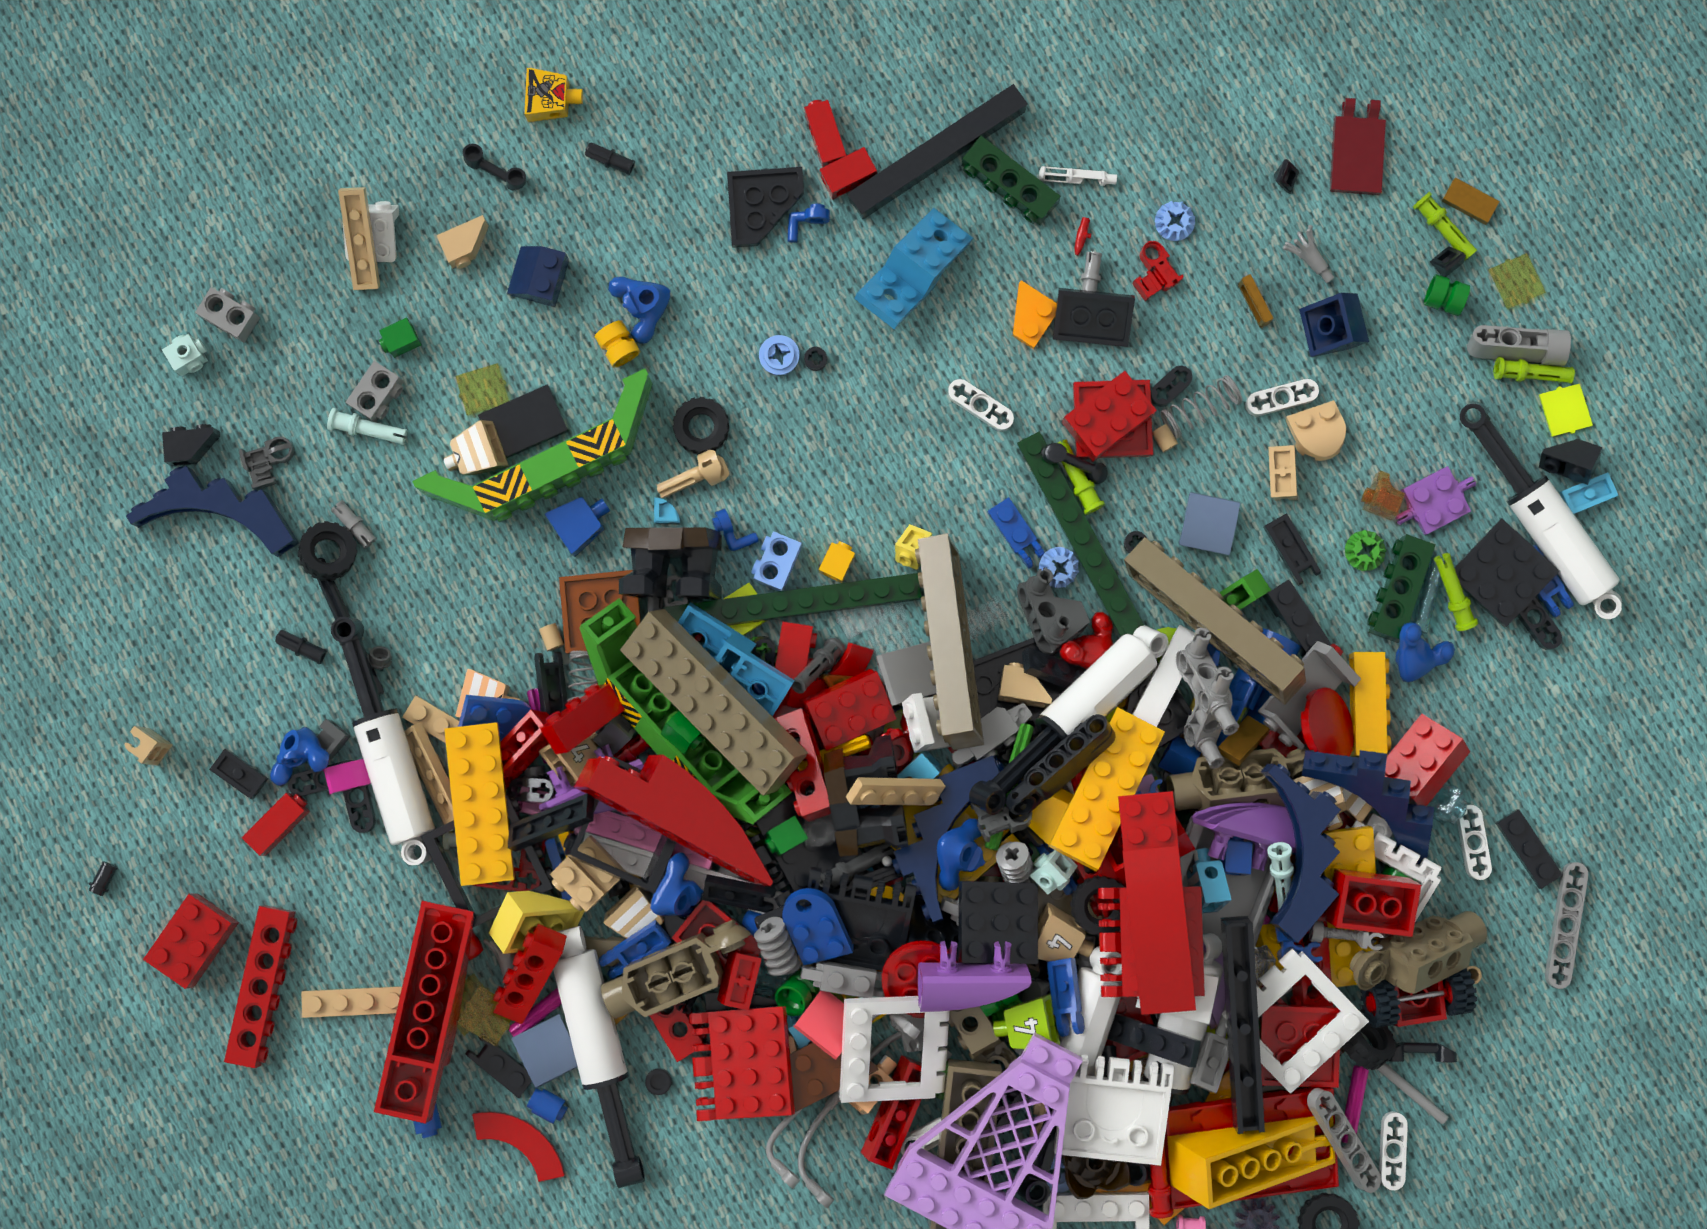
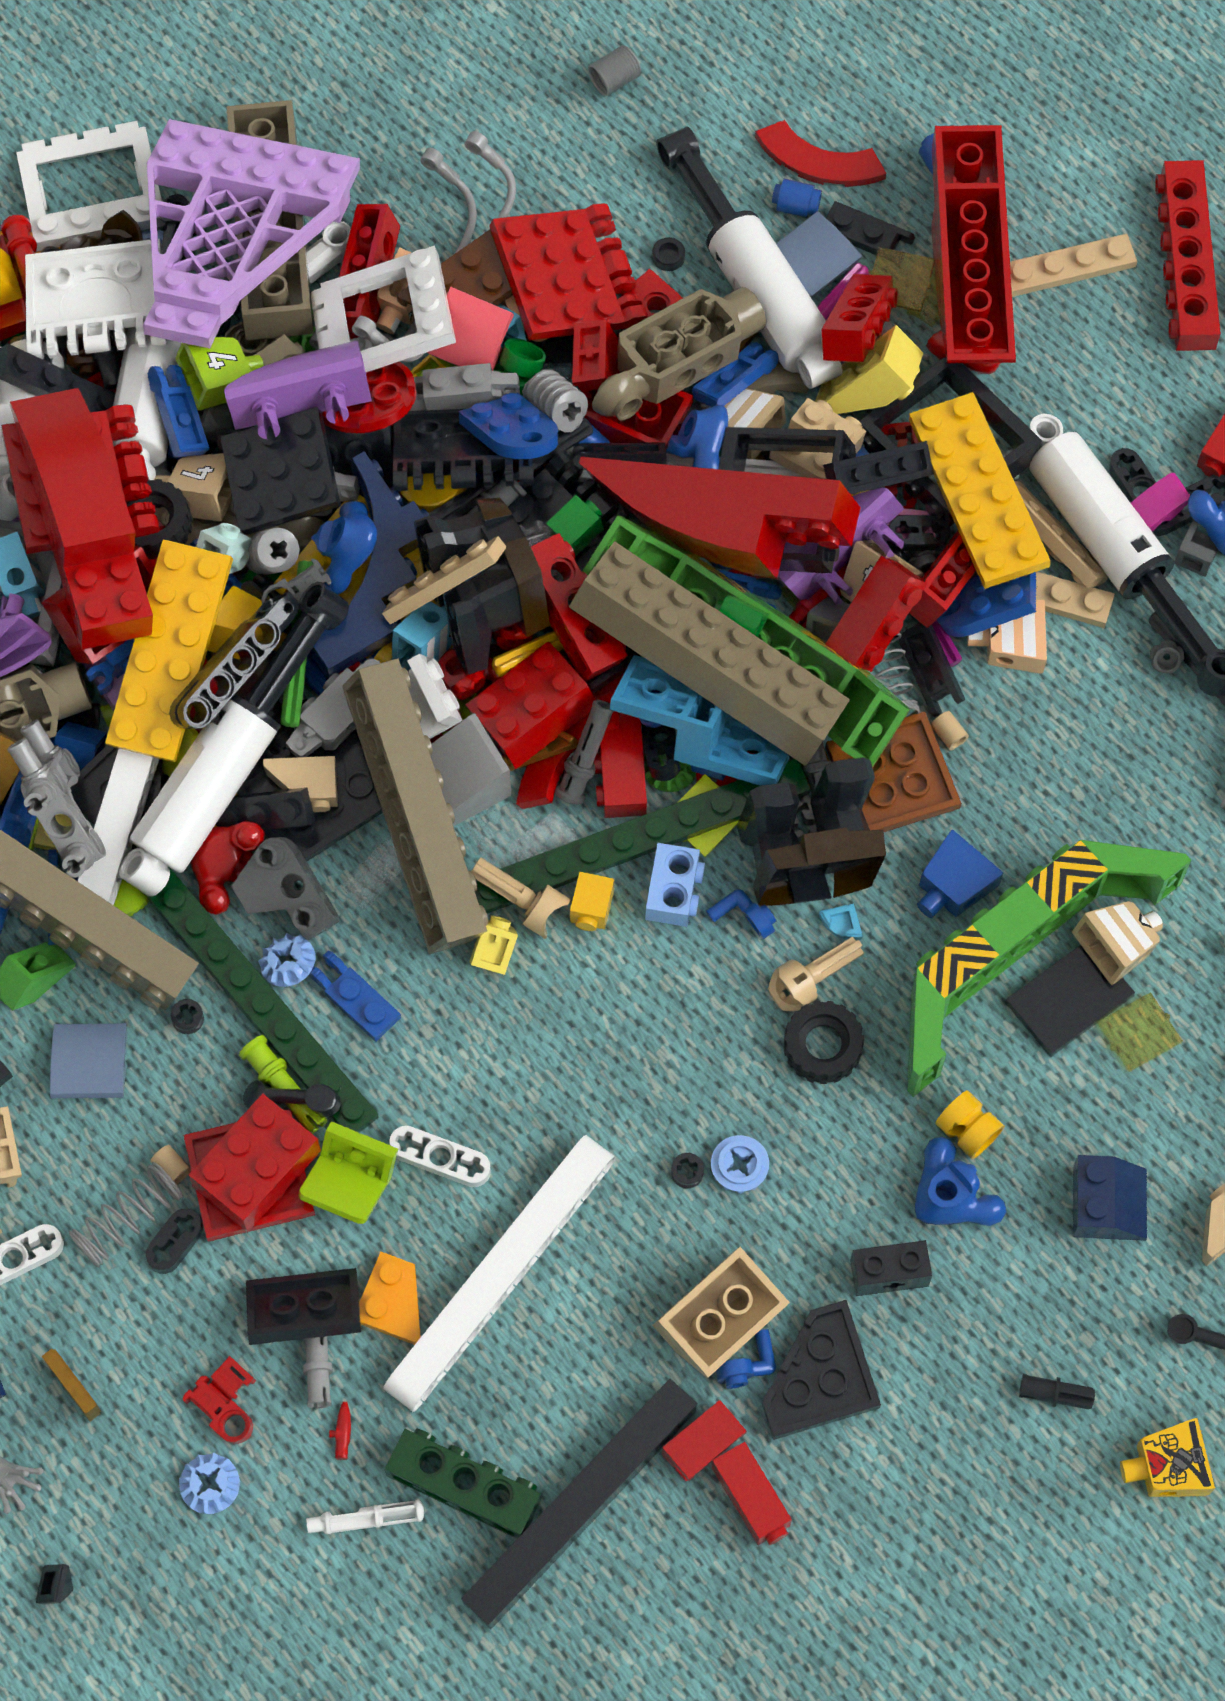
camera: 165 degrees right, 15 degrees down
(696, 258) = (891, 1268): none -> black brick
(817, 251) = (721, 1313): none -> tan slope
(875, 563) = (537, 905): none -> tan piece
(913, 268) = (575, 1317): dark azure bracket -> none
(956, 315) = (498, 1272): none -> white beam
(1047, 398) = (349, 1174): none -> lime bracket

